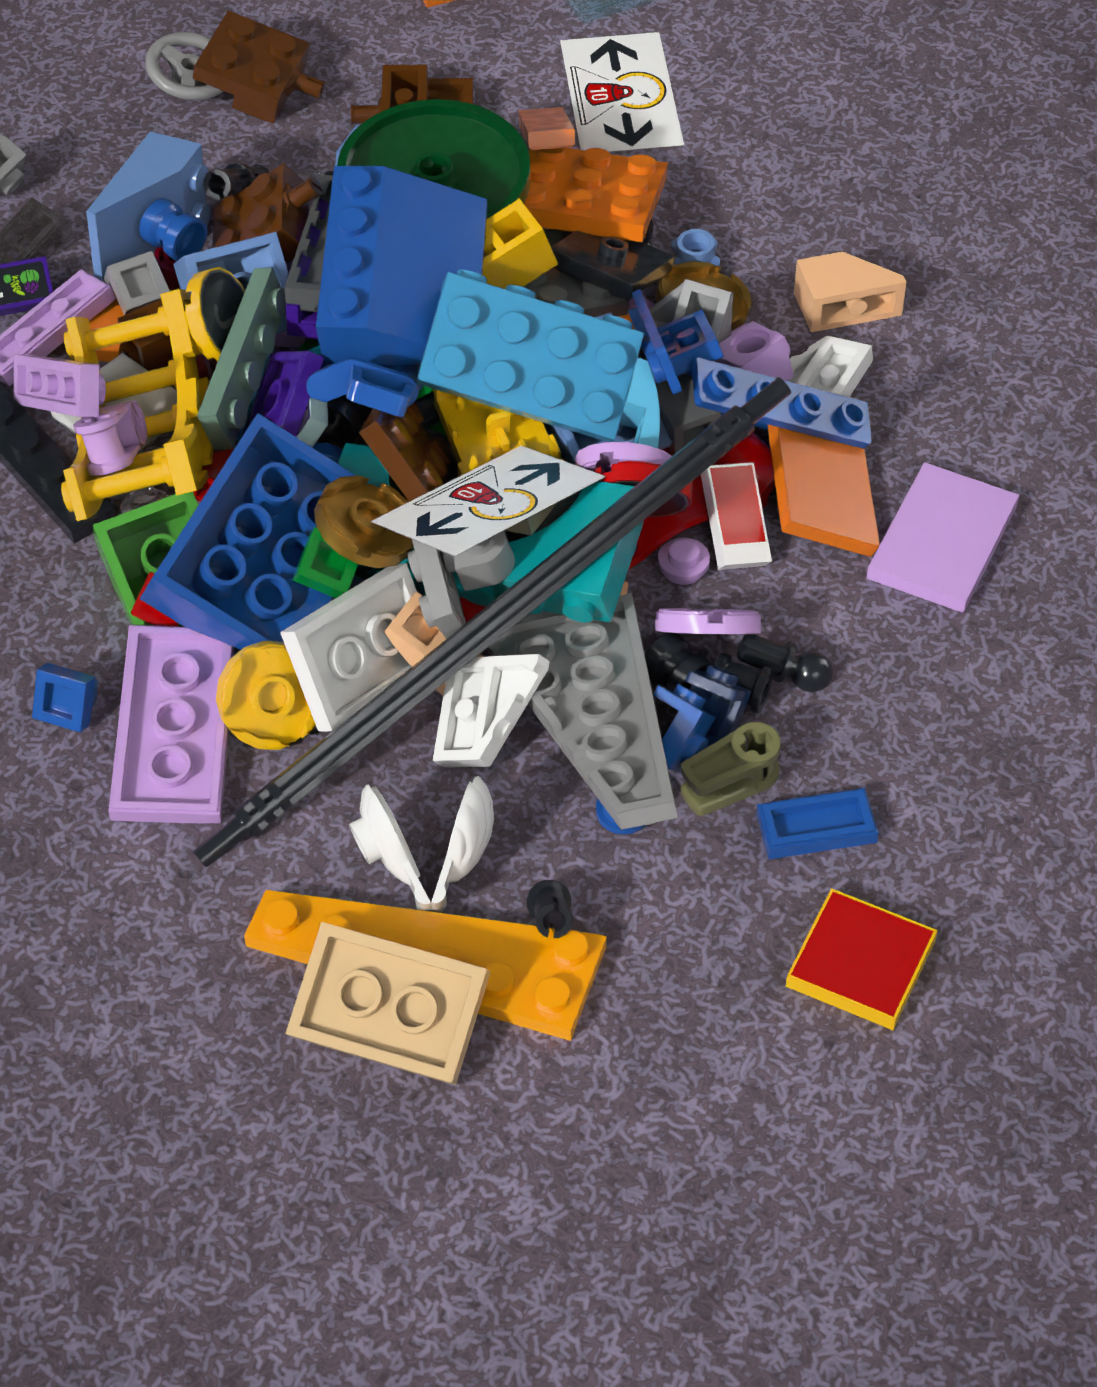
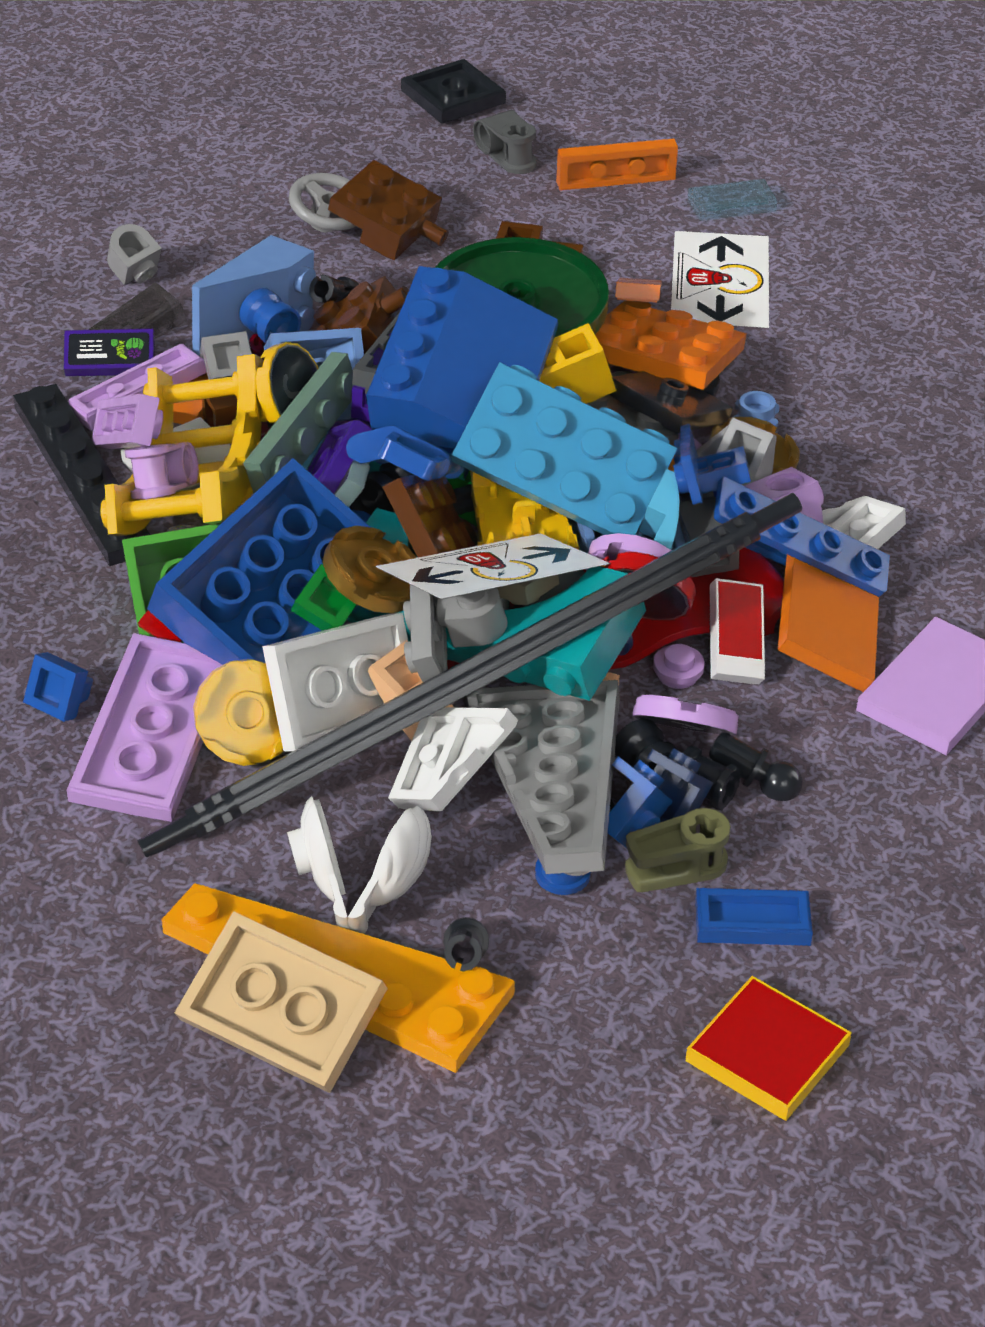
camera: 10 degrees right, 10 degrees down
(846, 291) = (893, 462): light nougat slope -> none

